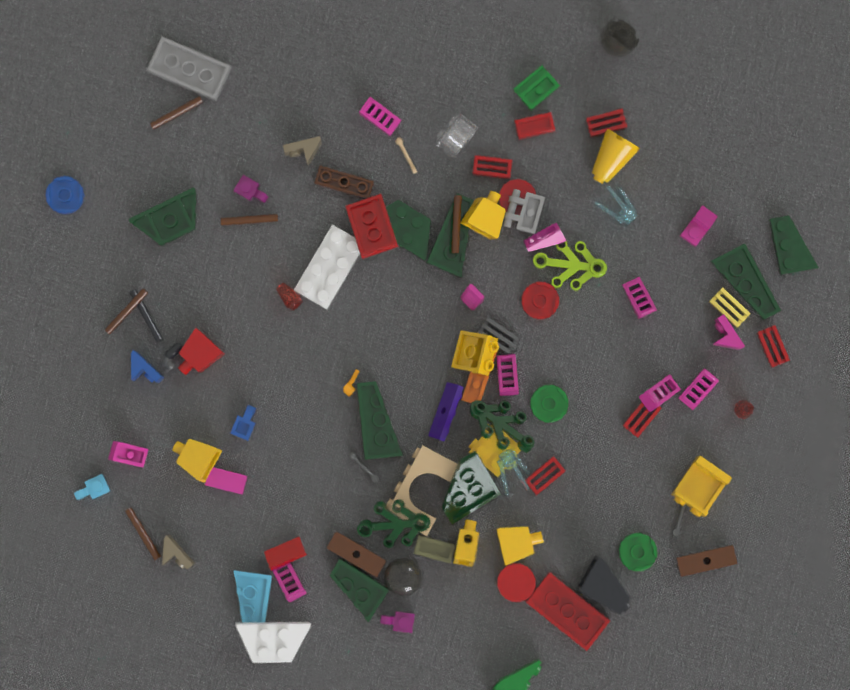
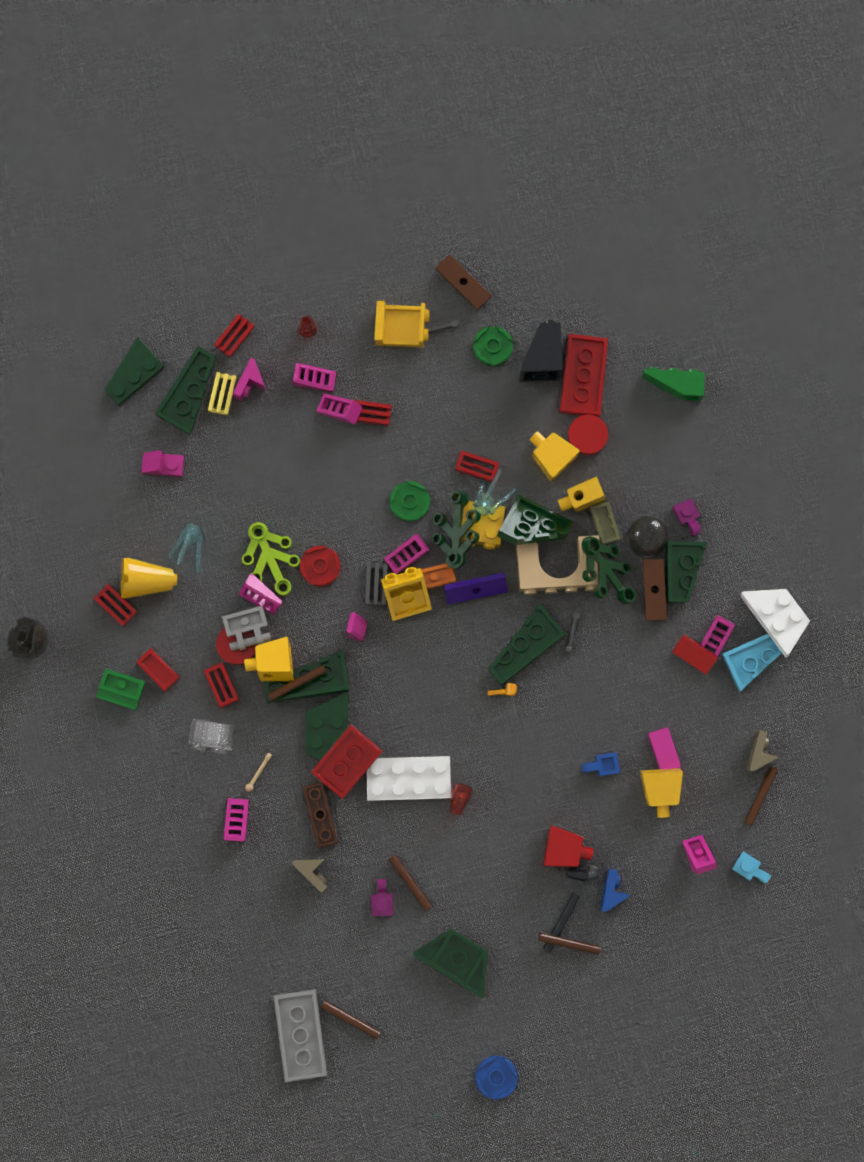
camera: 130 degrees left, 5 degrees down
(639, 314) = (273, 475): dark pink slope -> none

